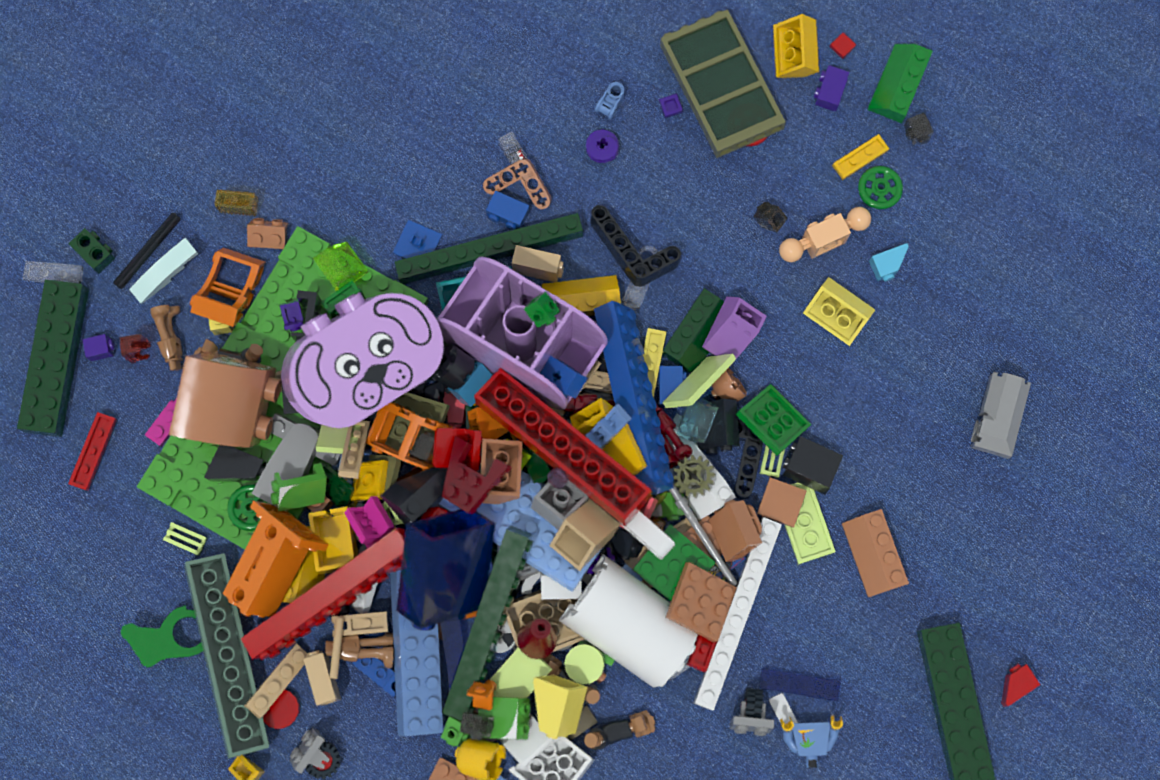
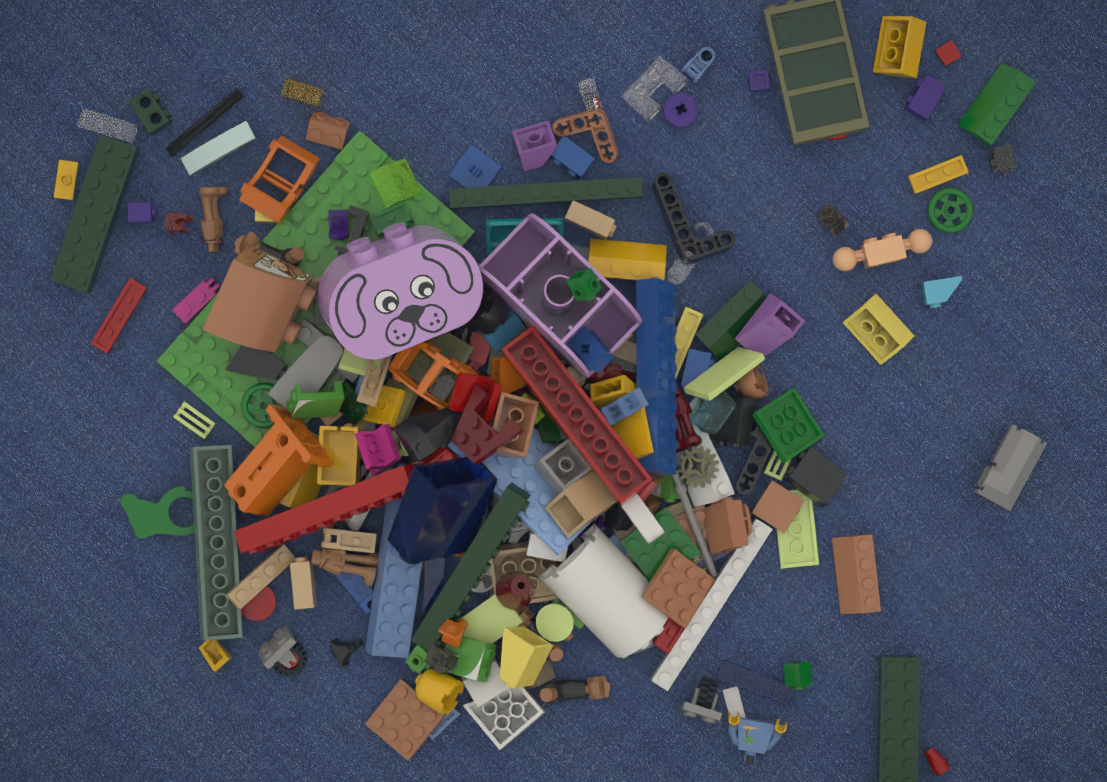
camera: 10 degrees right, 10 degrees up
(20, 332) = (66, 180): none -> yellow plate
(336, 648) = (323, 559): tan bar -> none
(376, 740) = (343, 650): none -> black piece
(469, 206) = (534, 144): none -> medium lavender slope
(557, 478) = (565, 446): clear purple tile -> none
(560, 139) = (656, 74): none -> clear plate
(841, 666) = (798, 674): none -> green brick
(1001, 726) = (937, 762): none -> red cone
(1018, 684) = (962, 726): red slope -> none

